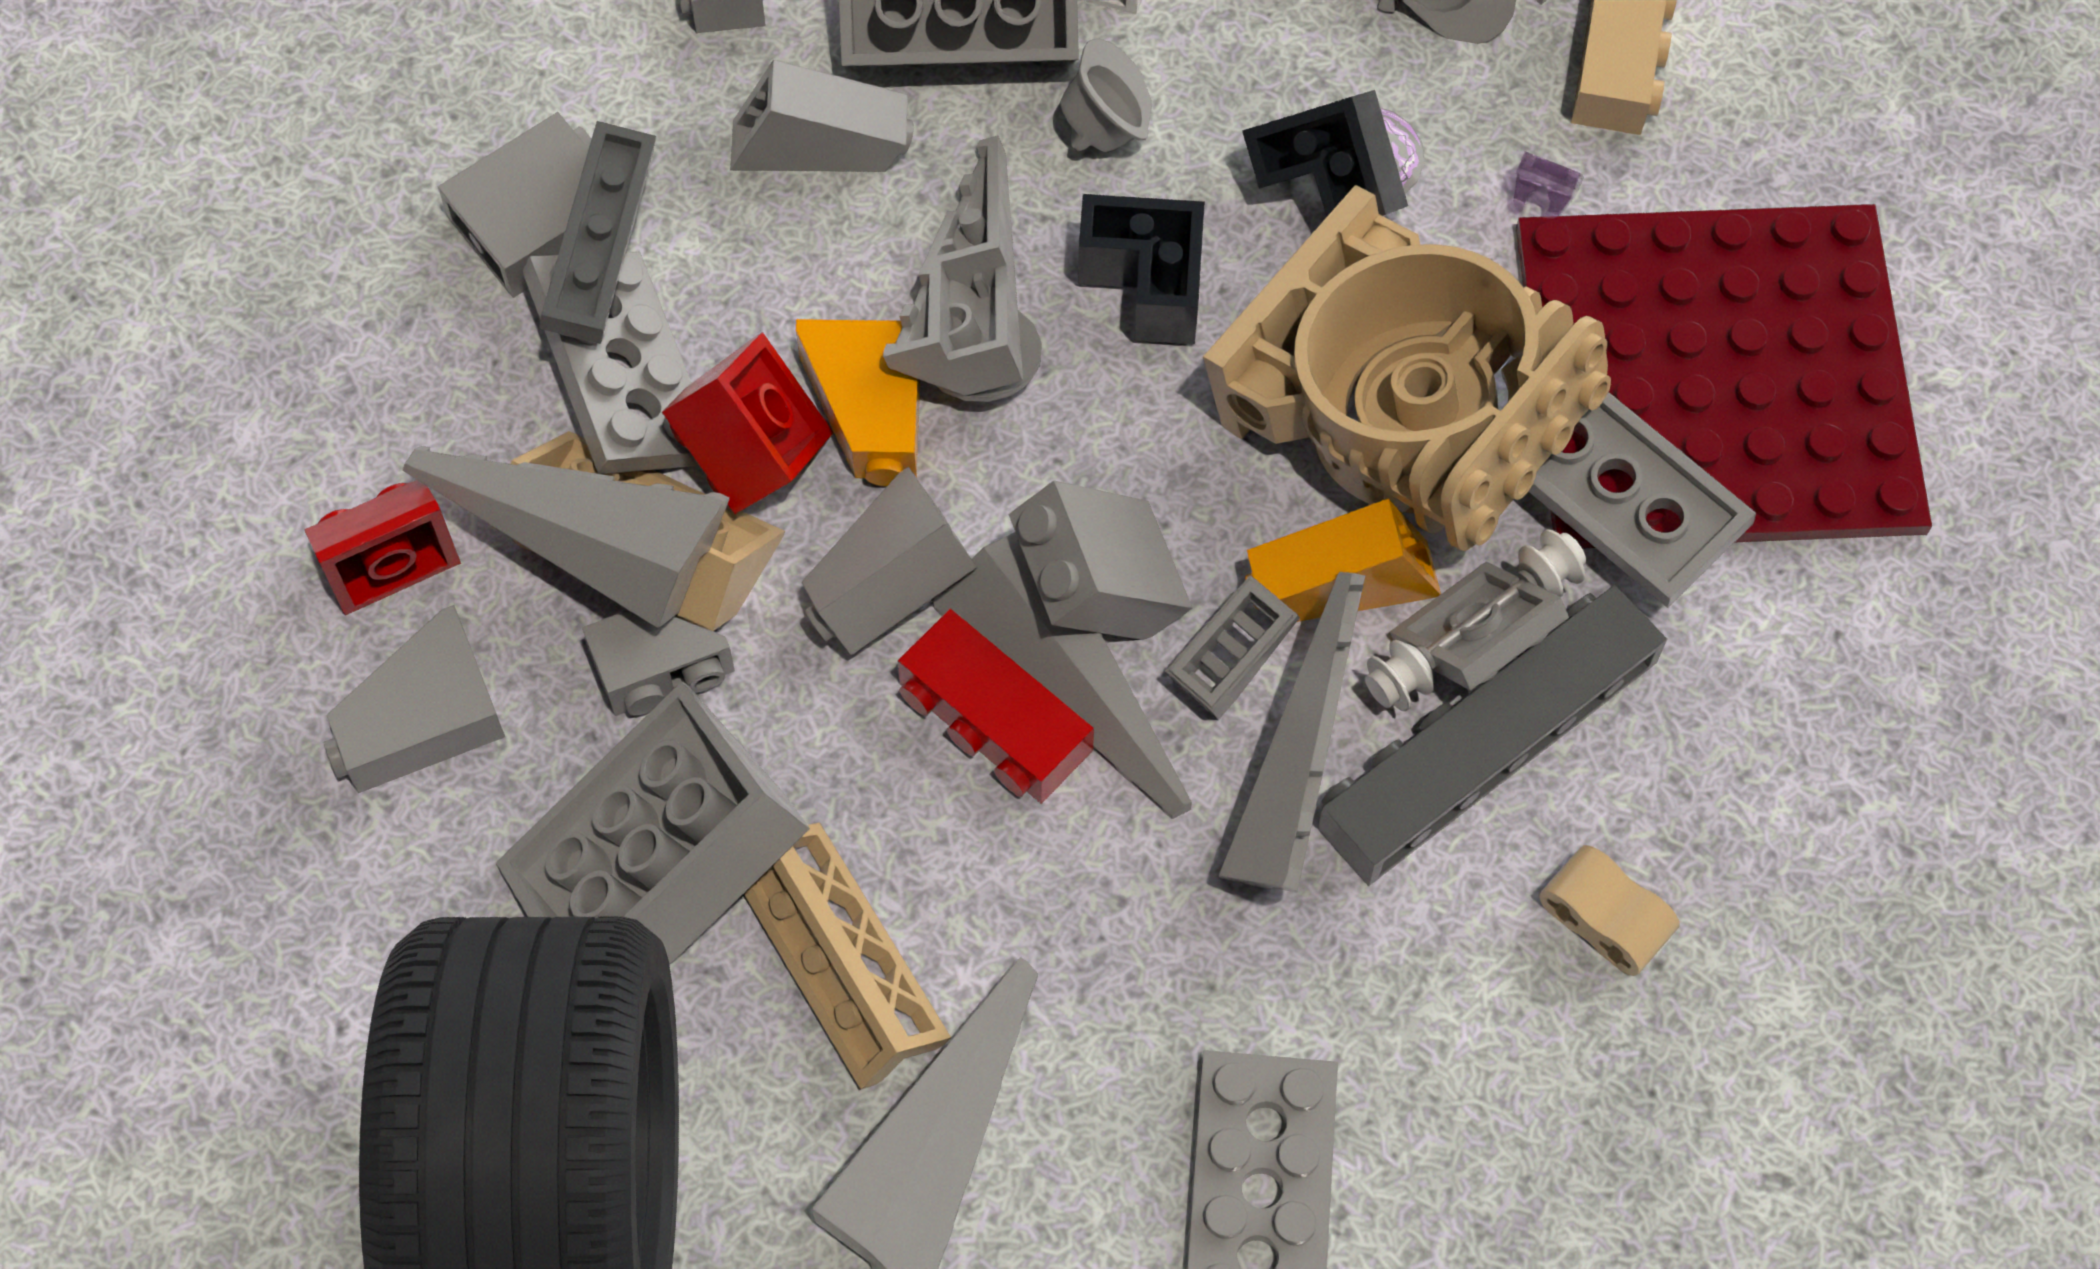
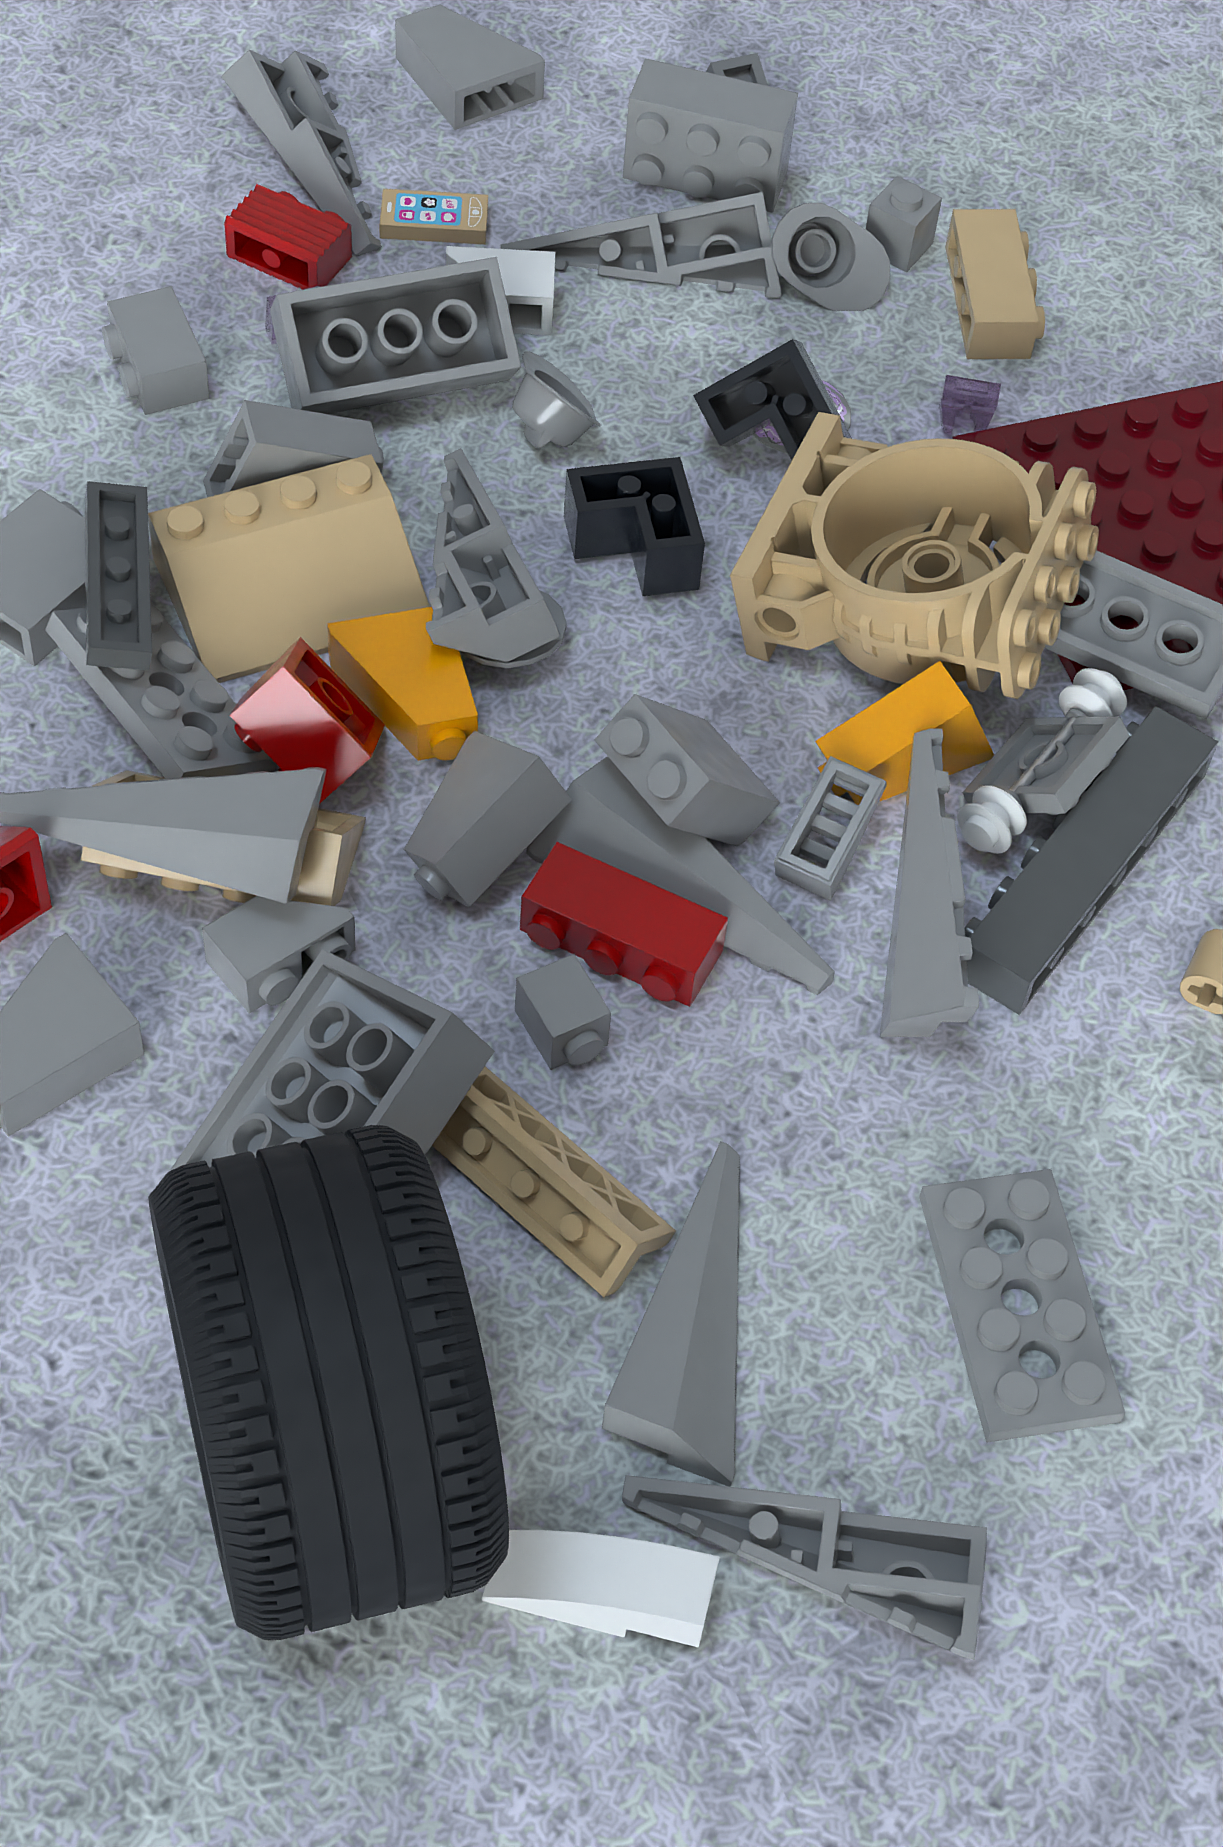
camera: 20 degrees left, 10 degrees down
(781, 240) = (284, 562): none -> tan slope
(908, 788) = (563, 1012): none -> light grey brick

